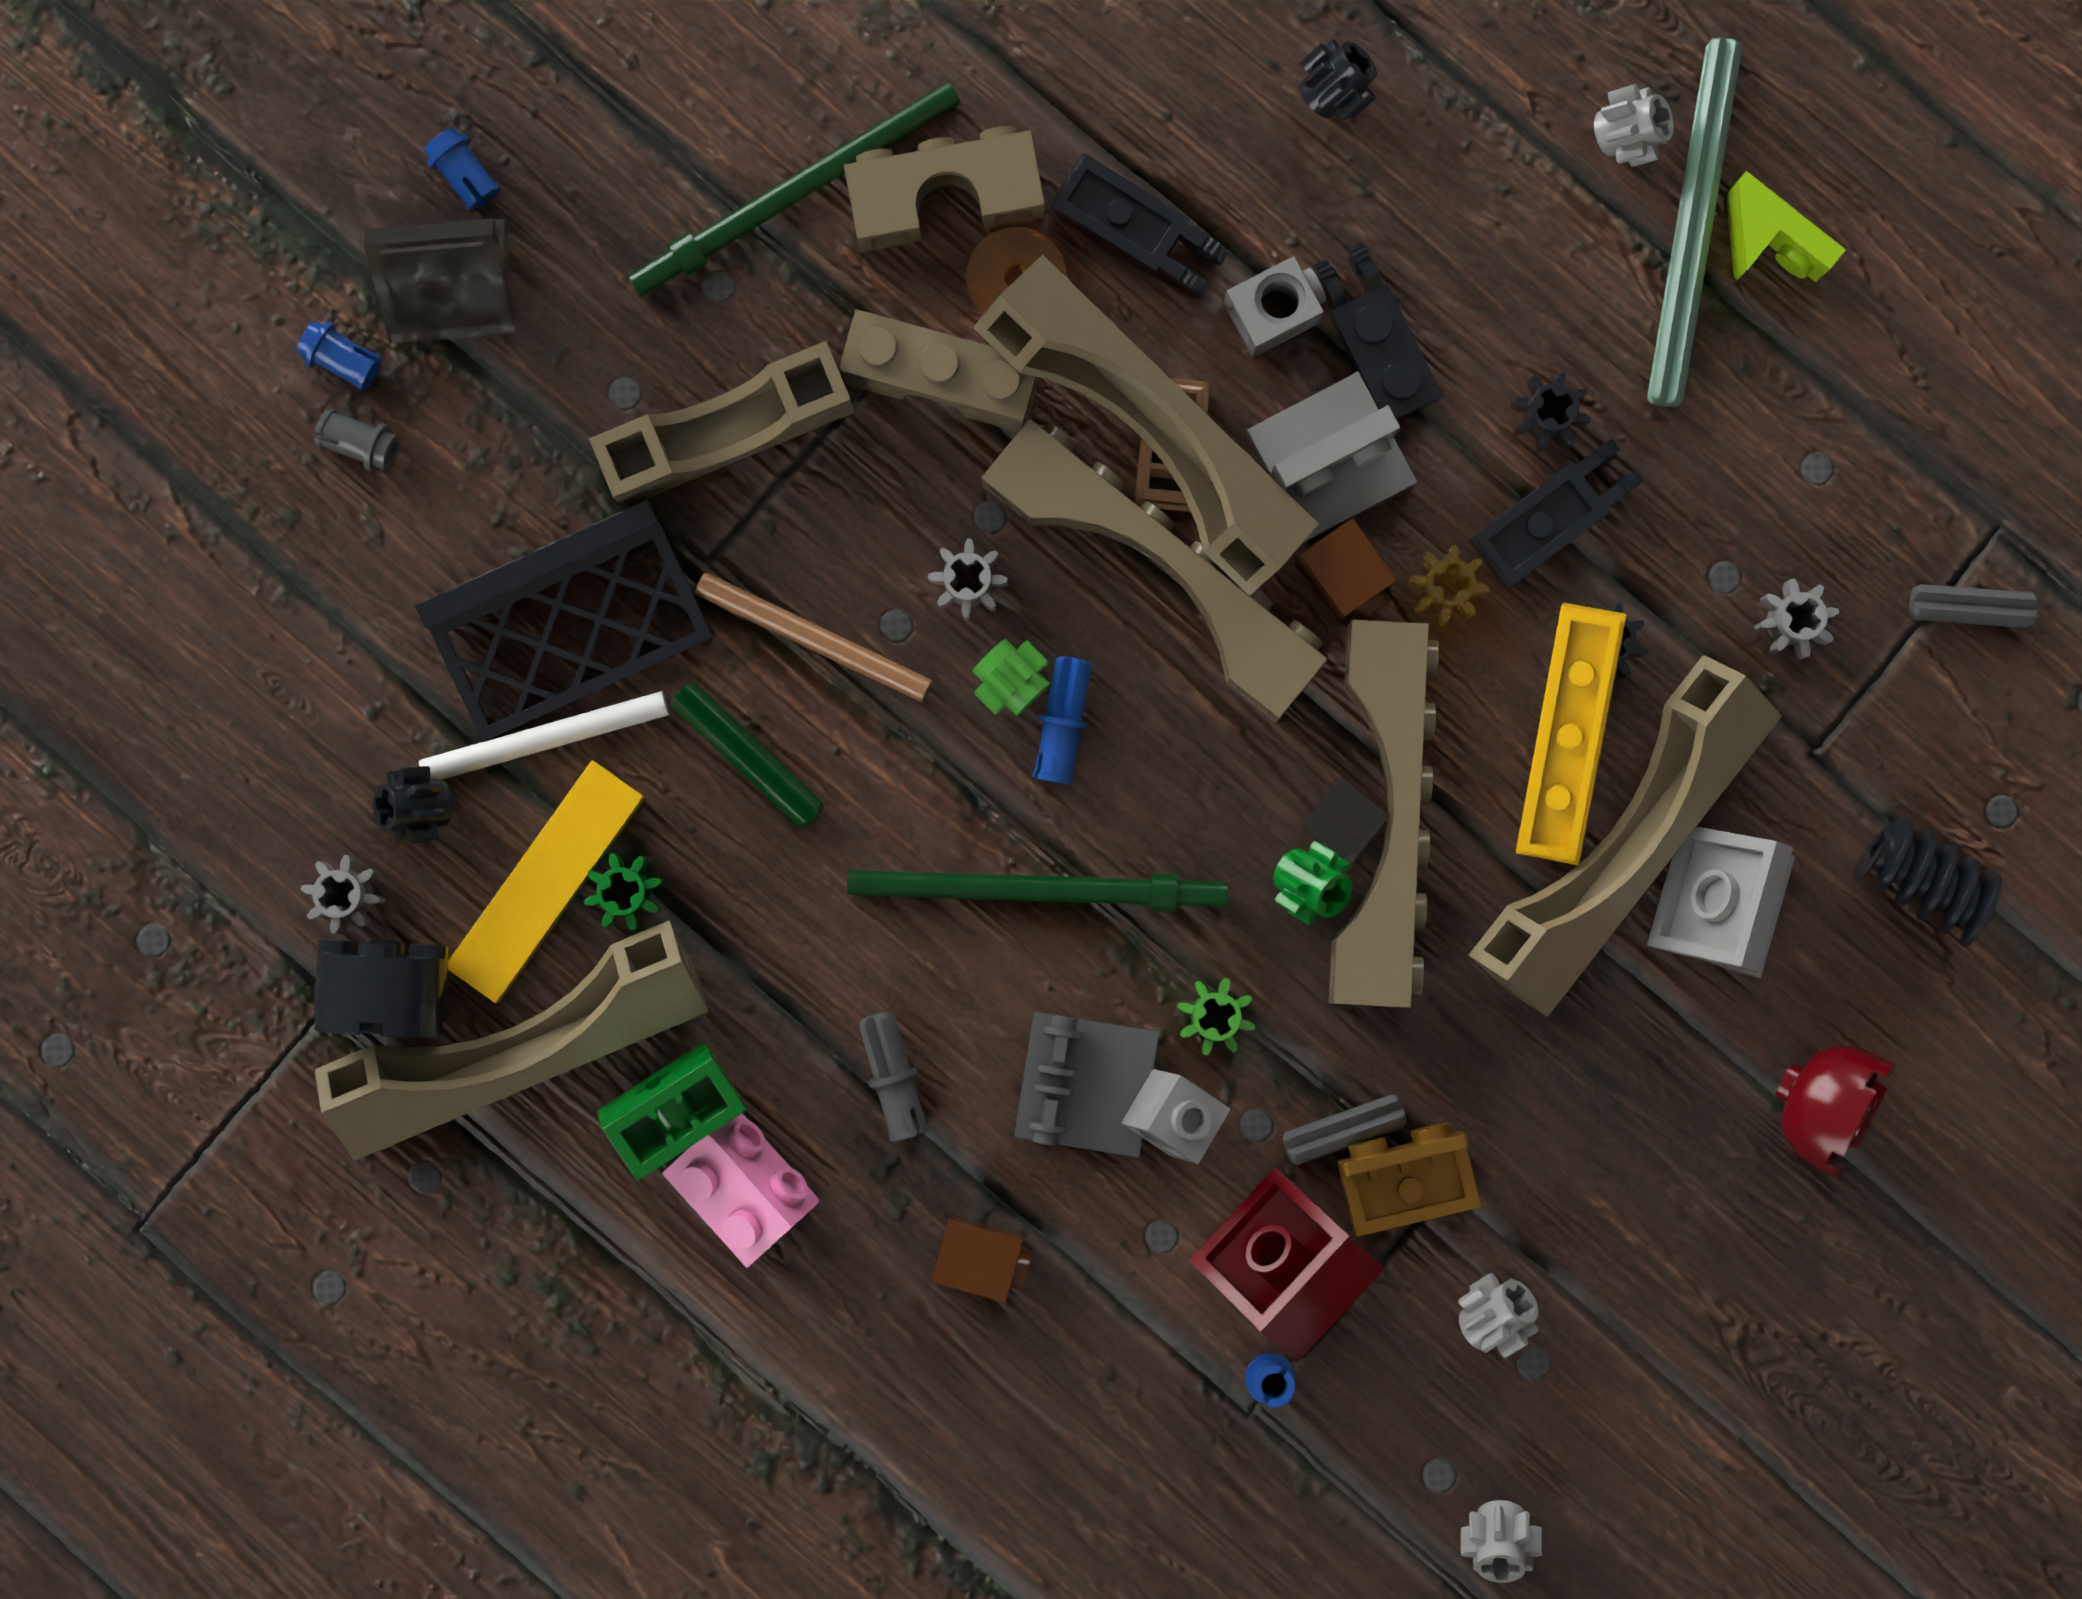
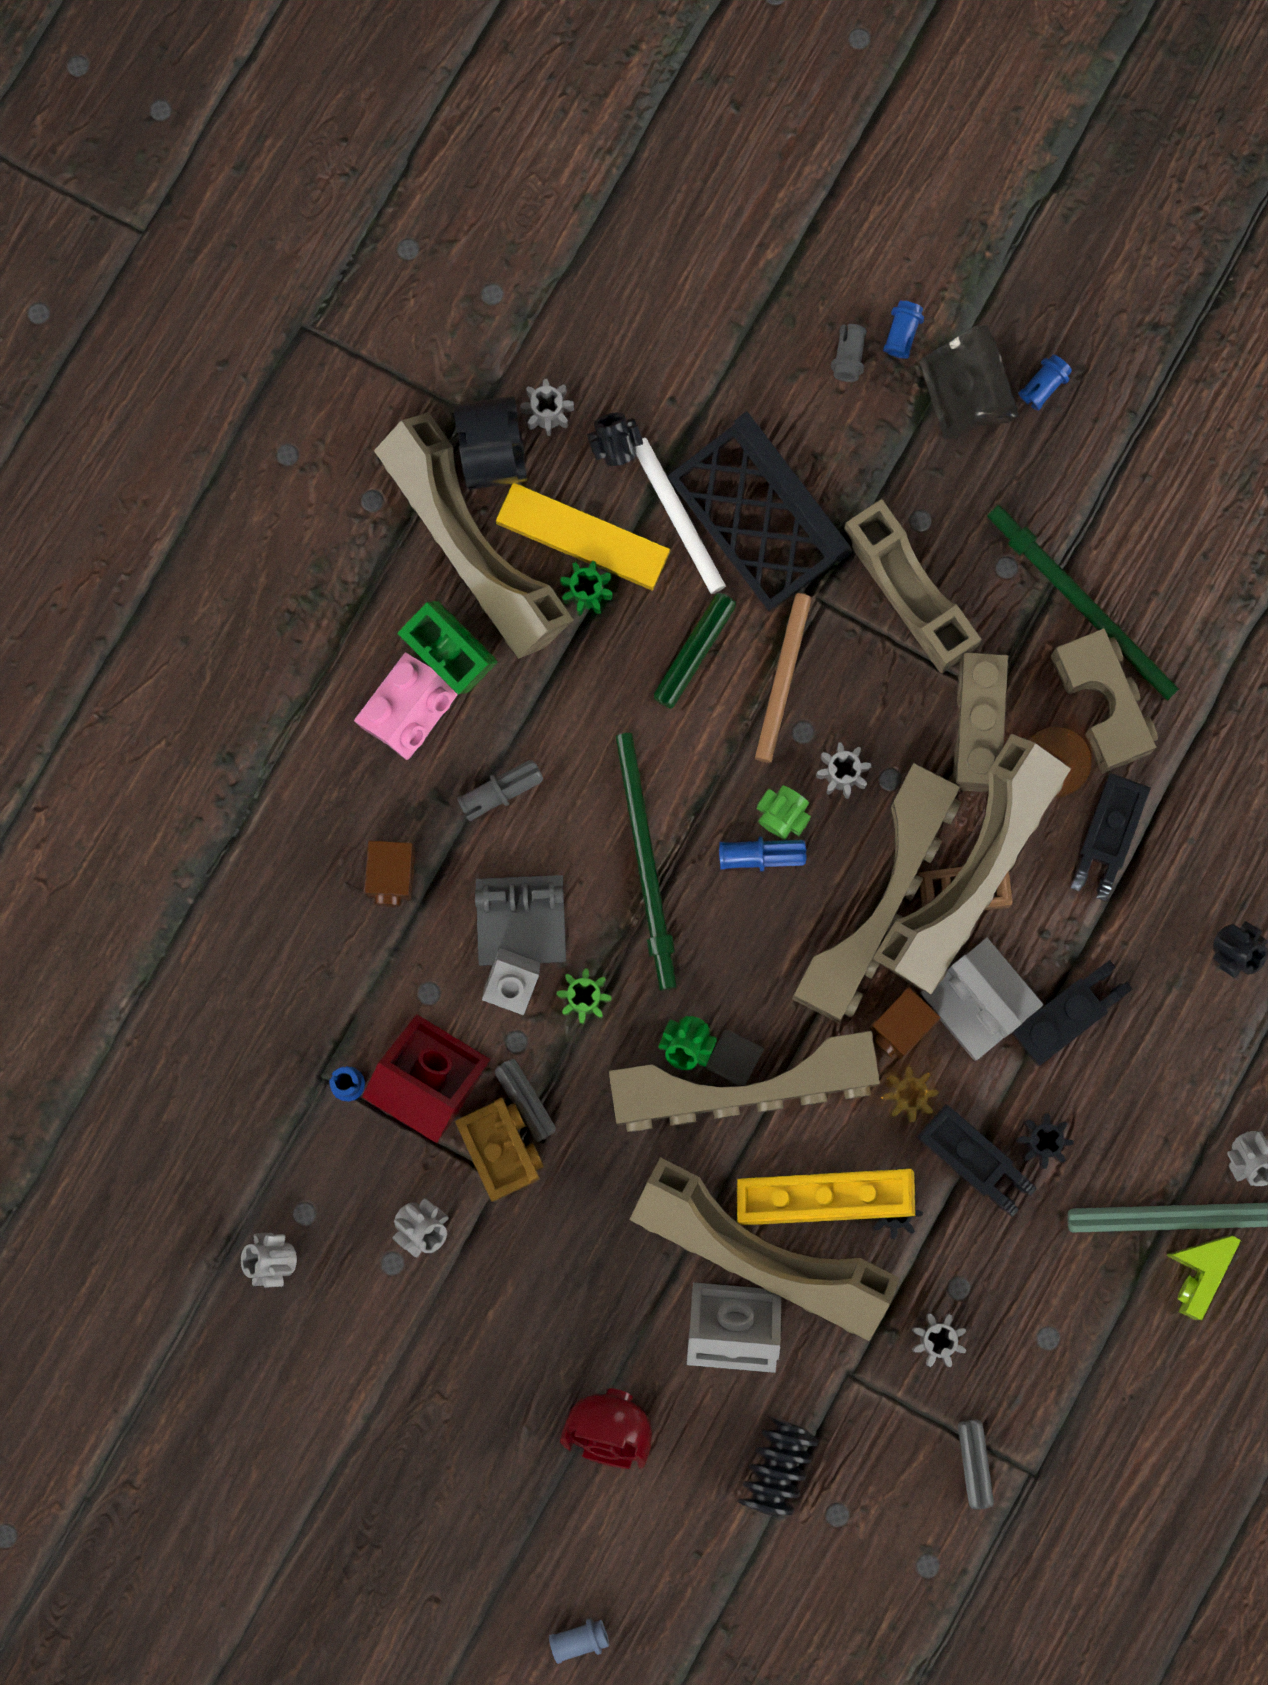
camera: 75 degrees right, 5 degrees down
(1259, 329) = (1075, 919): light grey brick -> none

